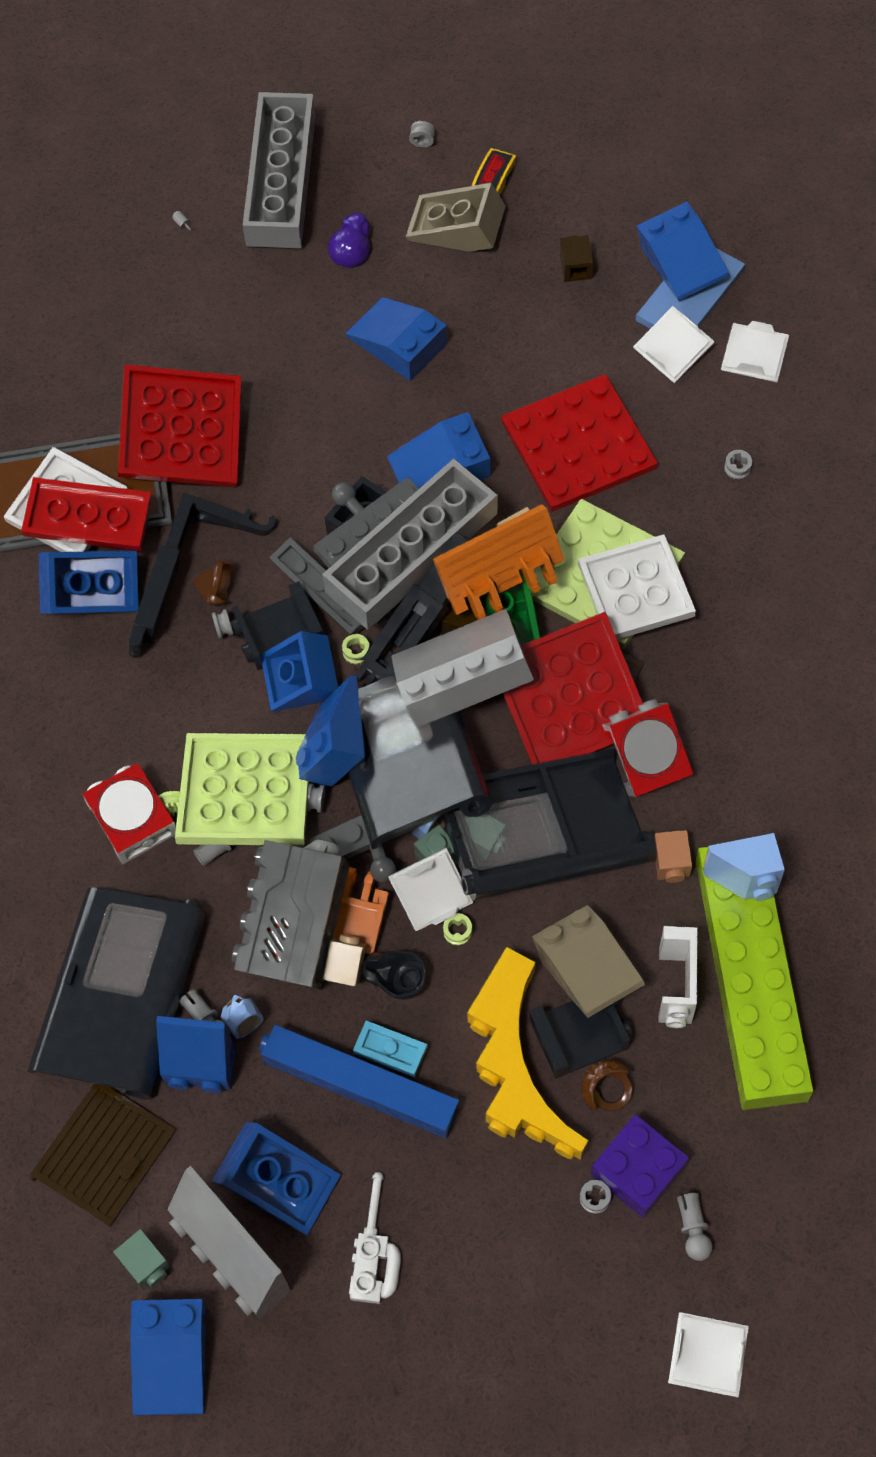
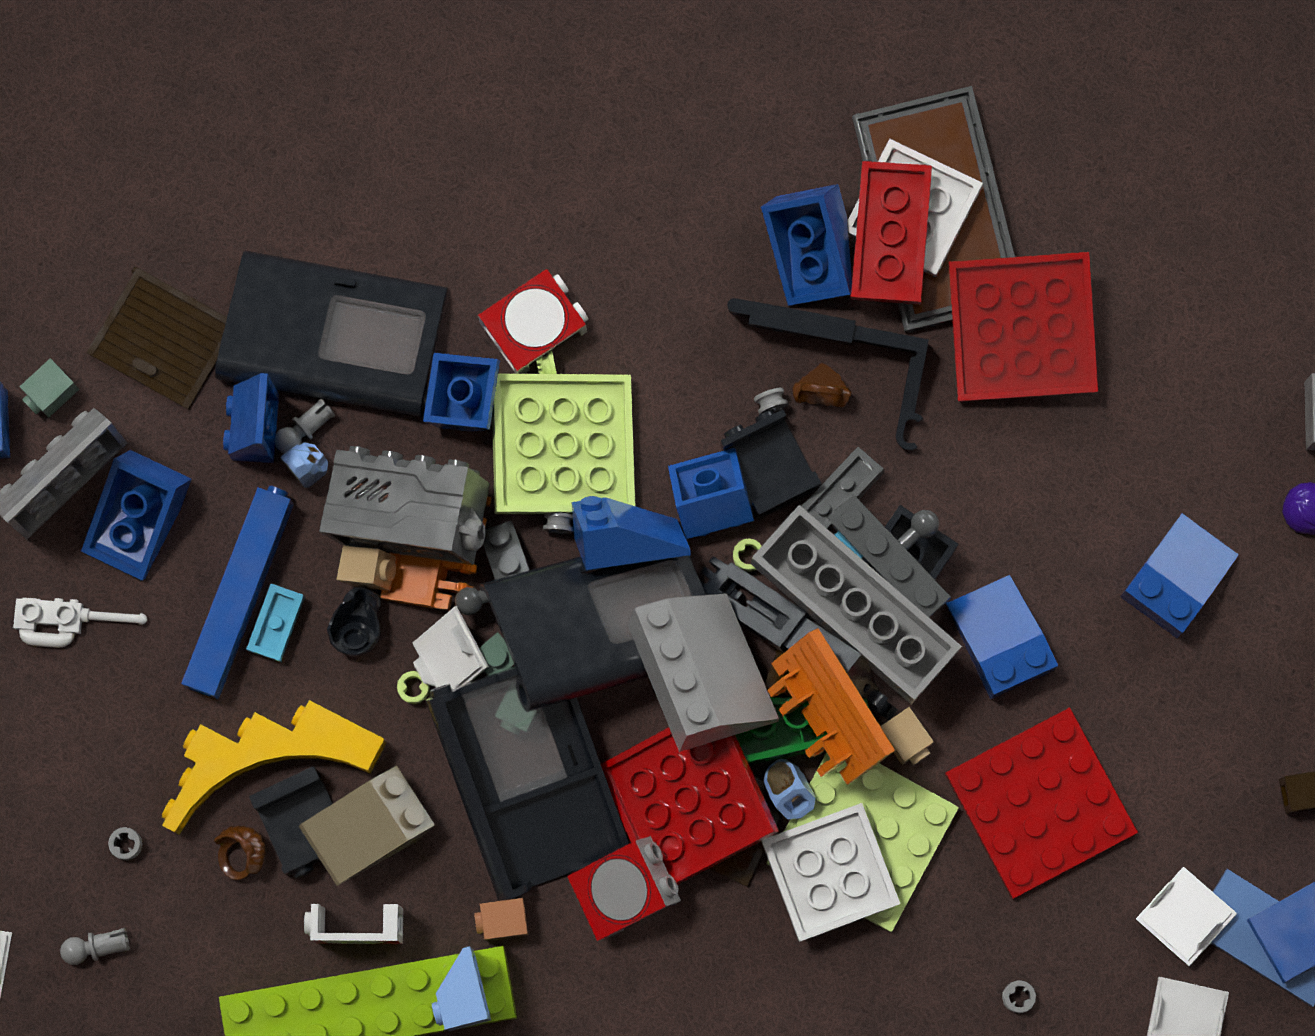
camera: 85 degrees right, 15 degrees up
(189, 864) = (461, 392): none -> blue slope
(561, 615) = (789, 789): none -> light blue rock
(639, 1166) = (153, 887): dark purple brick -> none

